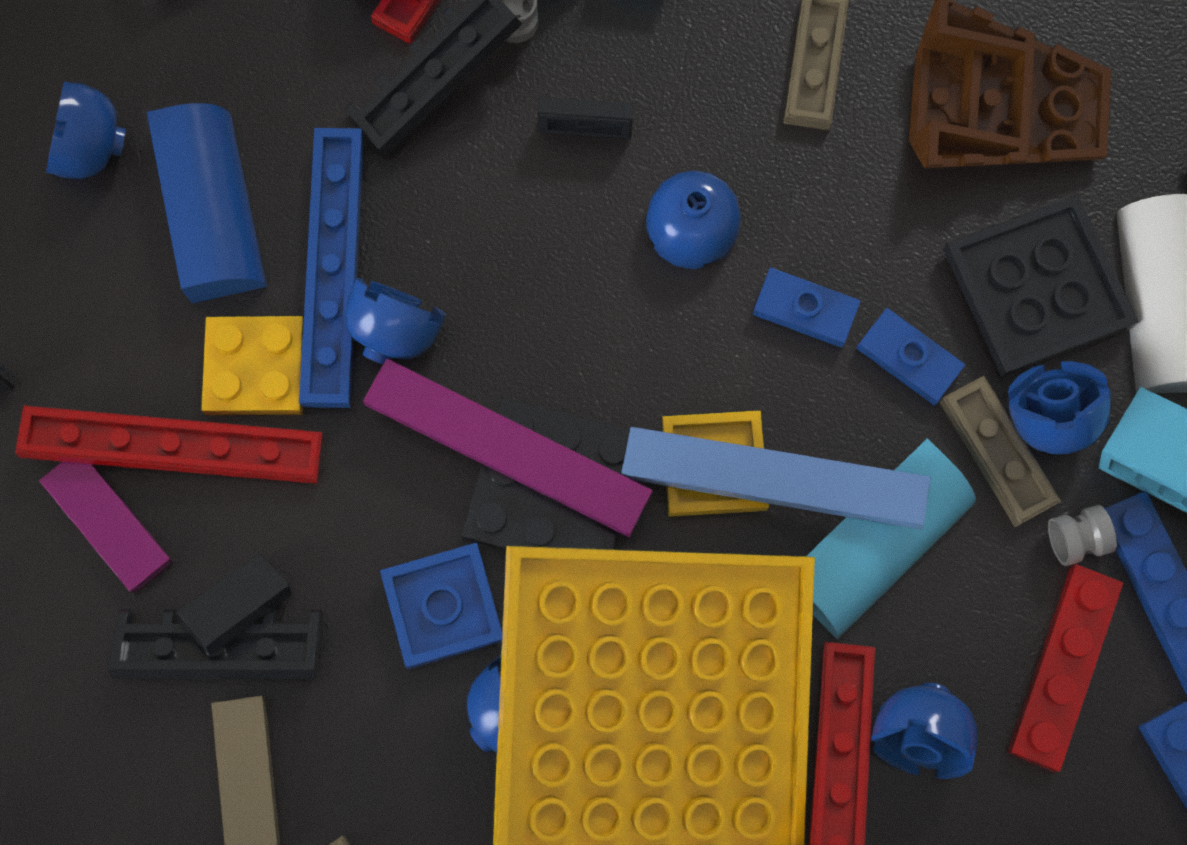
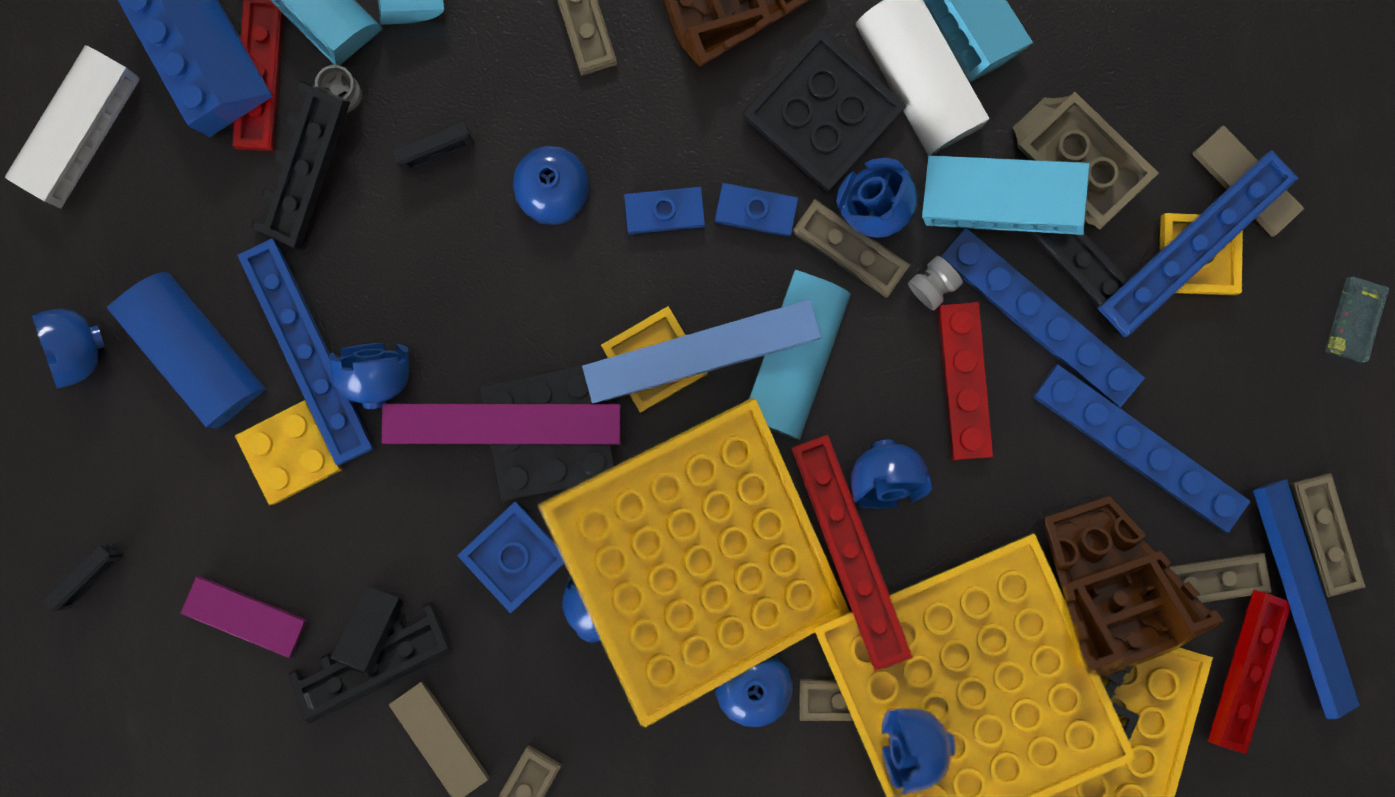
camera: 25 degrees left, 10 degrees up
(169, 444) = (259, 541): red tile -> none

